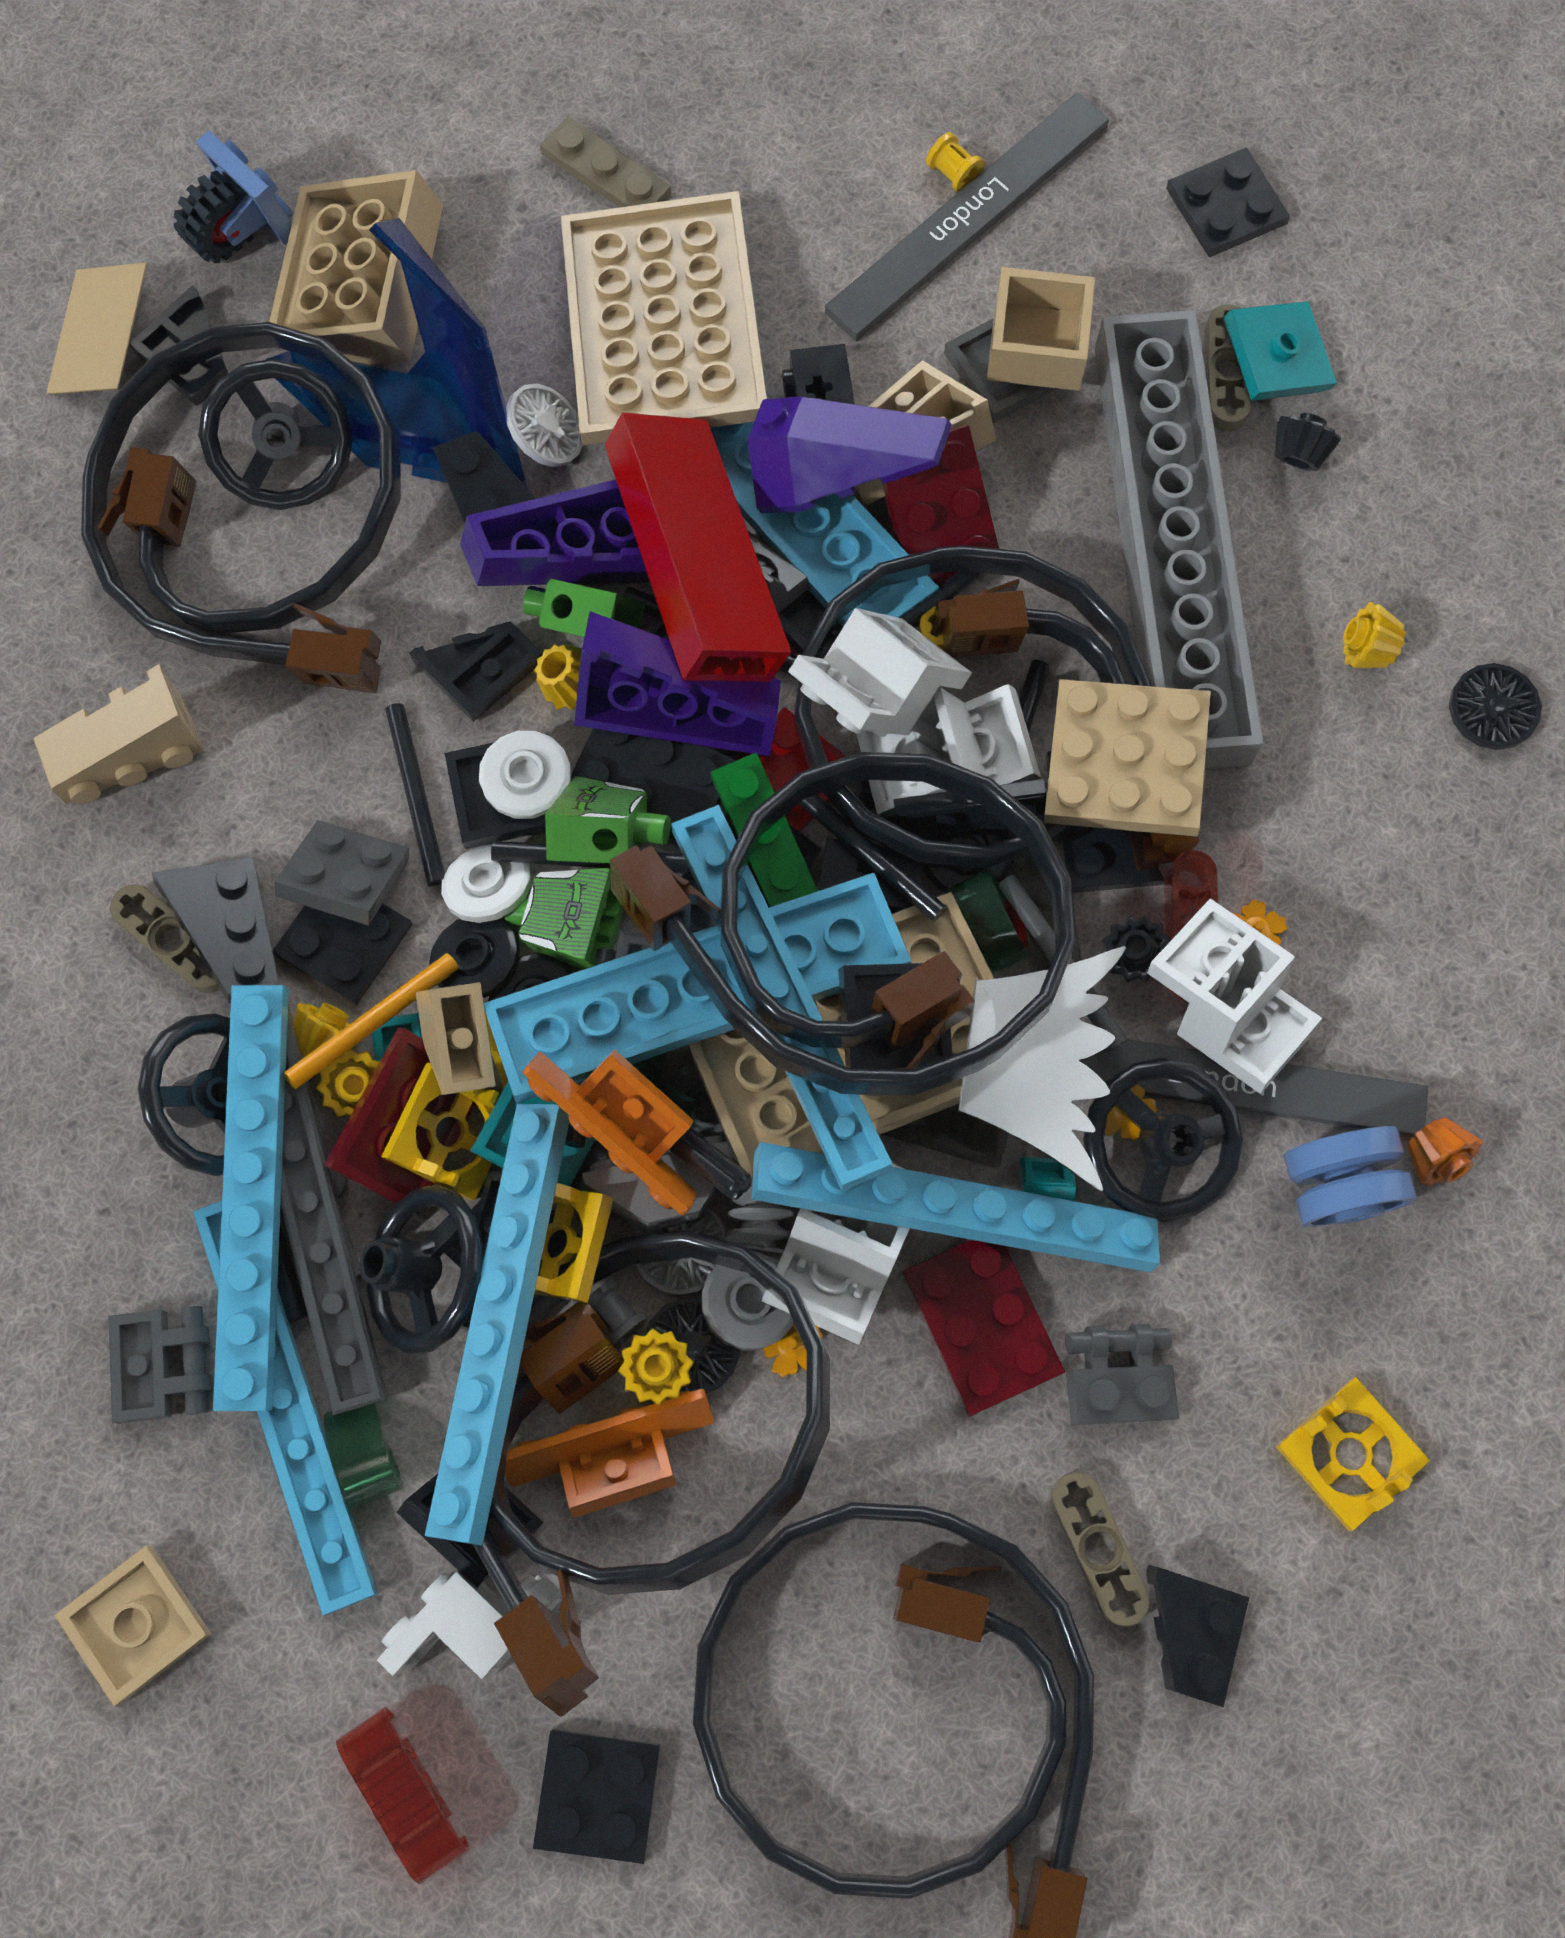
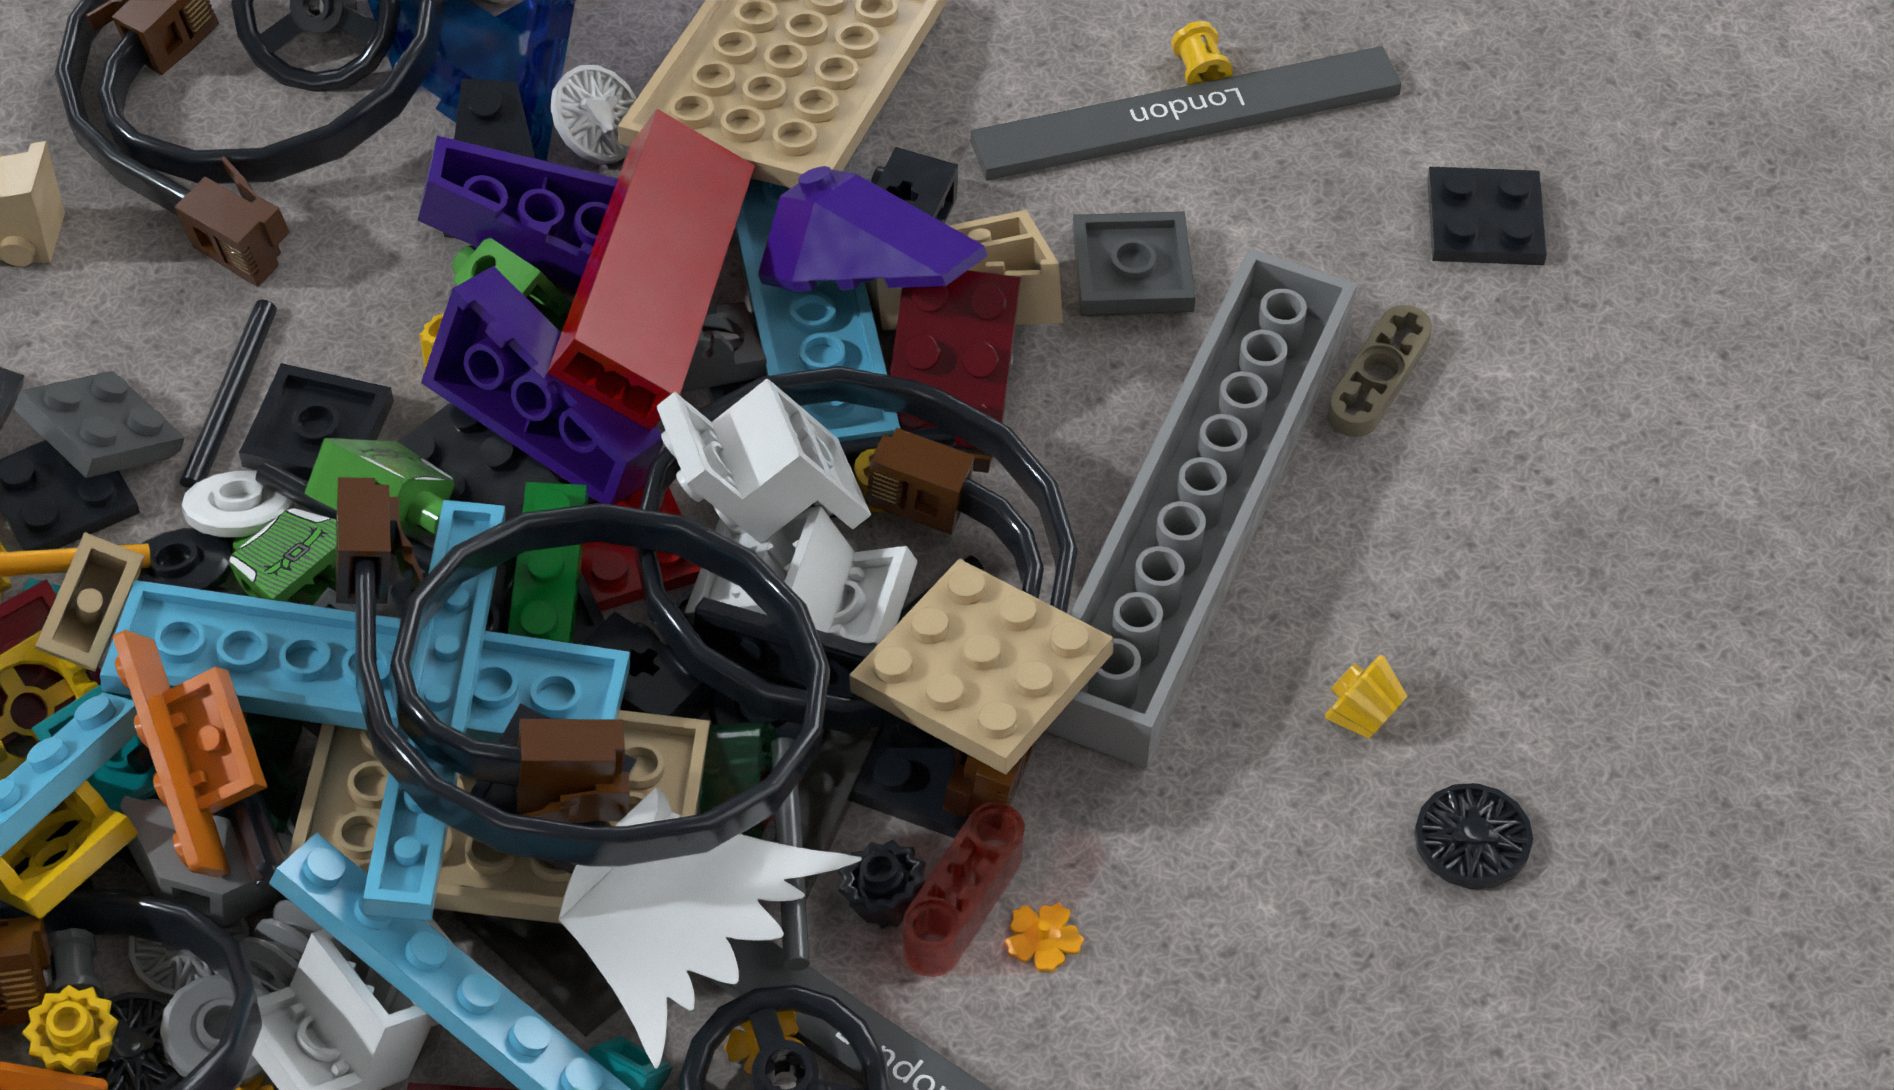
camera: 25 degrees right, 20 degrees down
(479, 666) = (375, 304): black wing -> none
(524, 774) = (344, 406): white wheel -> none
(874, 857) = (645, 641): black bar -> none
(1041, 328) = (1171, 230): tan piece -> none
(1234, 995) = (954, 968): white bracket -> none
(1279, 350) = (1445, 374): teal plate -> none
(1304, 441) = (1415, 472): black piece -> none

